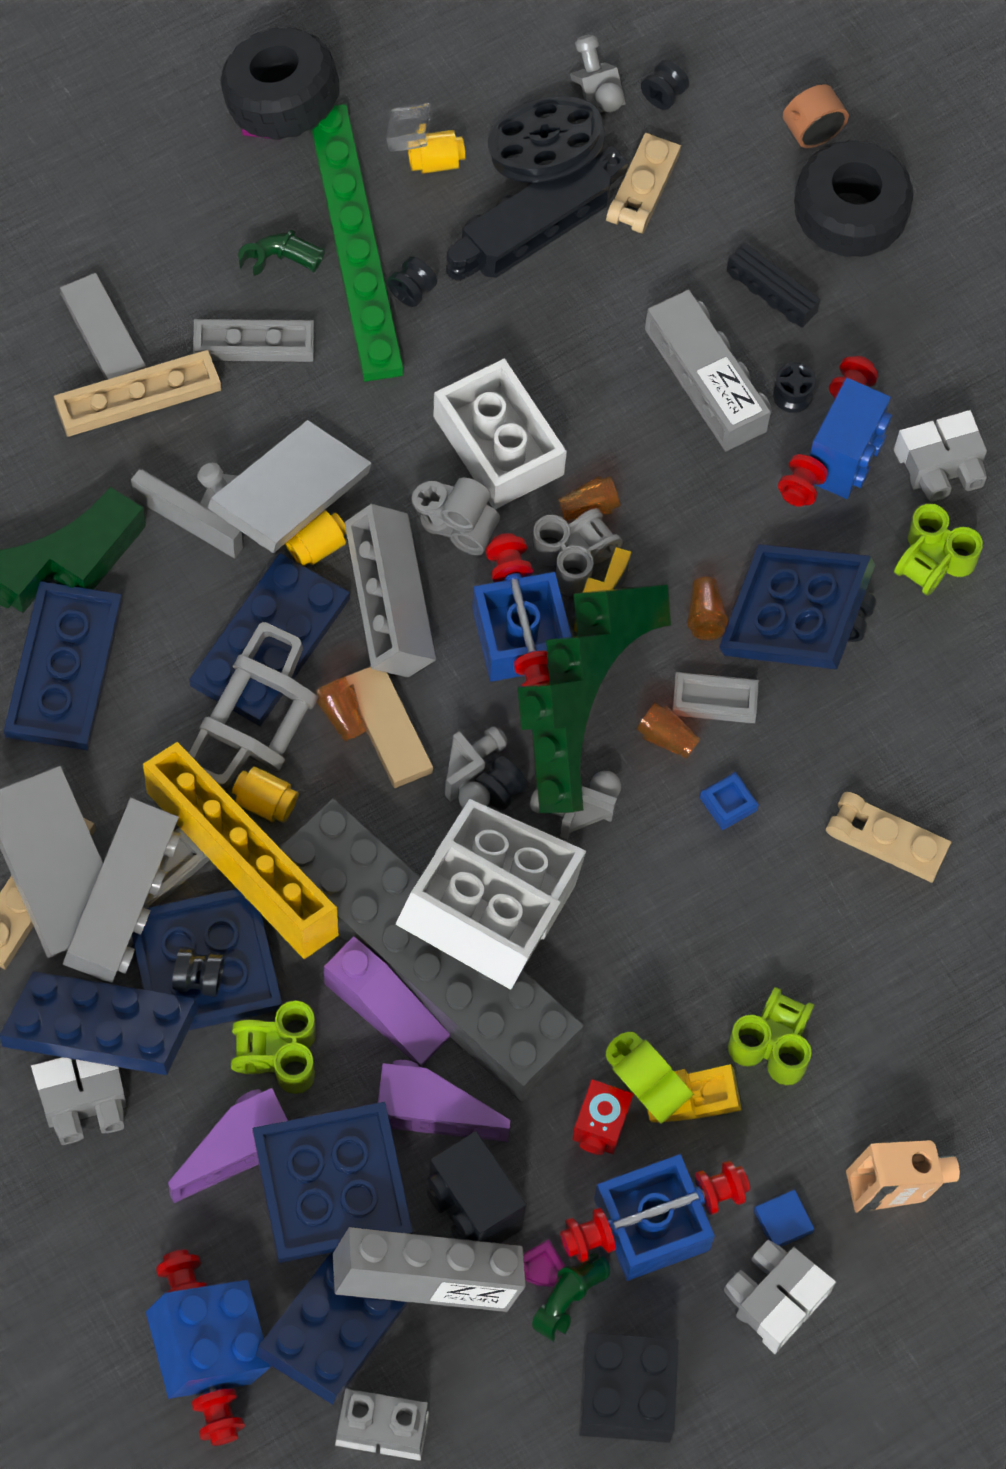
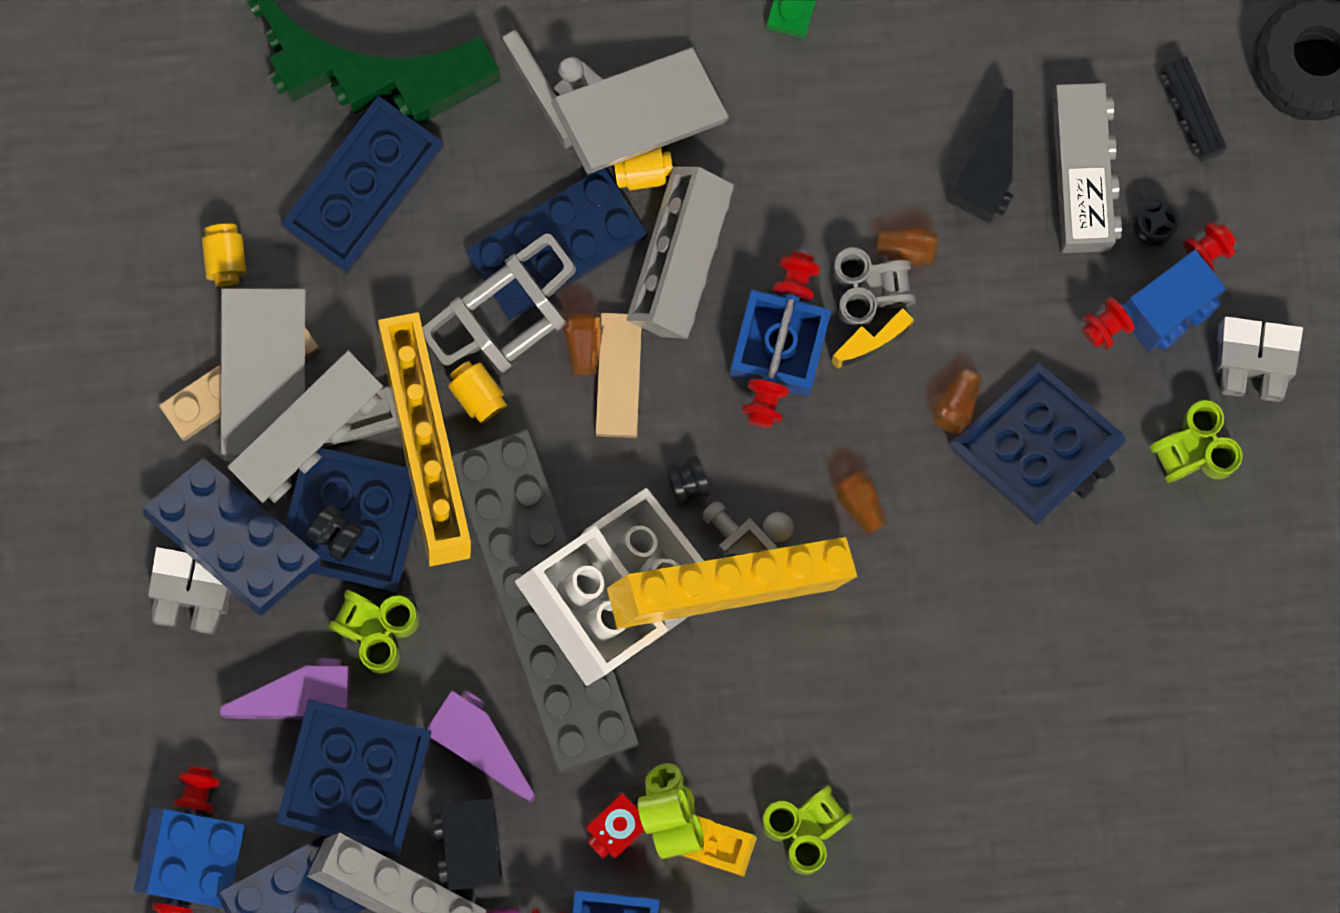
camera: 30 degrees right, 15 degrees up
(384, 1001) = (486, 633): medium lavender slope -> none
(457, 513) = (778, 204): light grey piece -> none
(467, 765) = (663, 452): light grey piece -> none
(499, 433) = (856, 145): white brick -> none
(577, 666) = (761, 447): dark green arch -> none
(593, 837) = (731, 582): none -> yellow brick
(626, 404) = (989, 169): none -> black slope
(715, 697) = (923, 488): light grey tile -> none
(729, 801) = (883, 591): blue tile -> none
(888, 837) = (1007, 695): tan plate -> none

